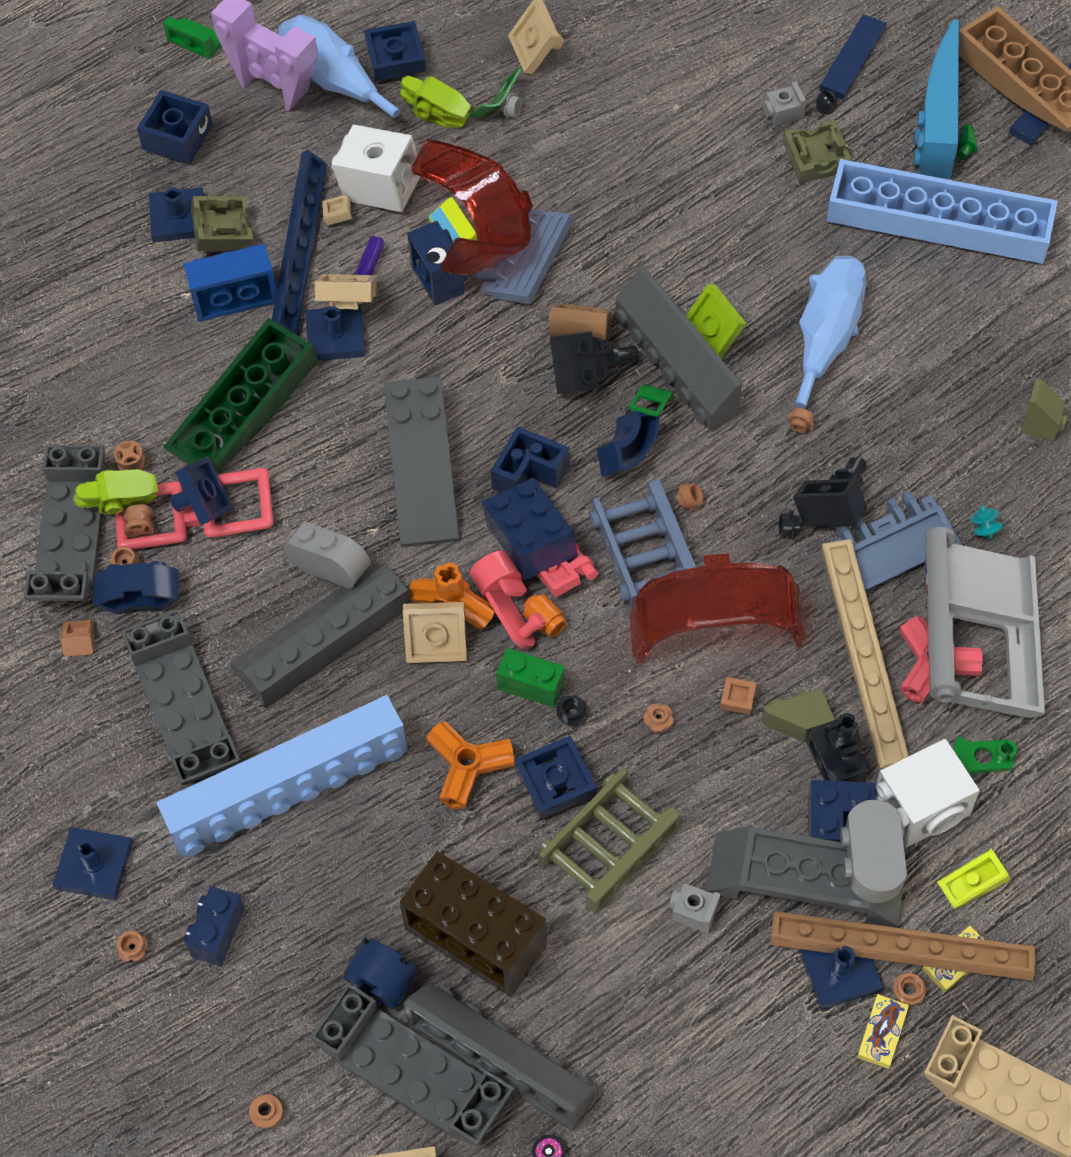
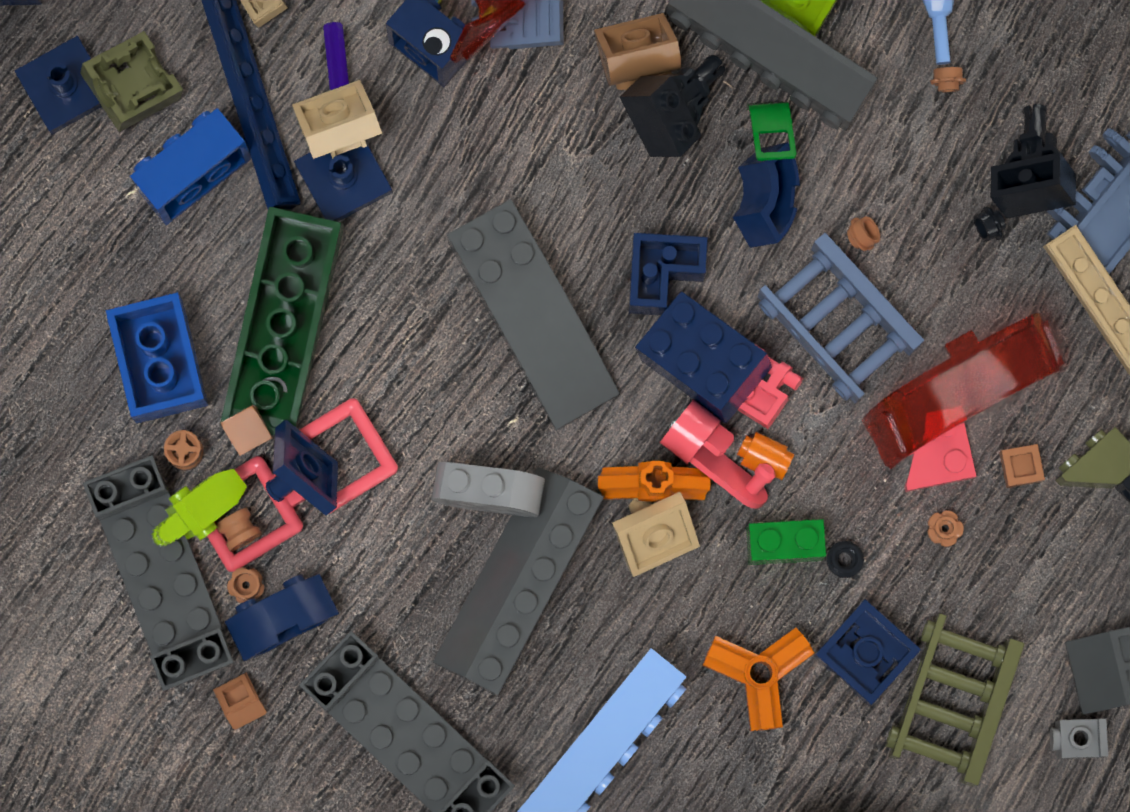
camera: 30 degrees left, 20 degrees up
(142, 391) = (156, 358): none -> blue brick
(176, 452) = (246, 430): none -> nougat slope
(680, 664) = (942, 461): none -> coral wing

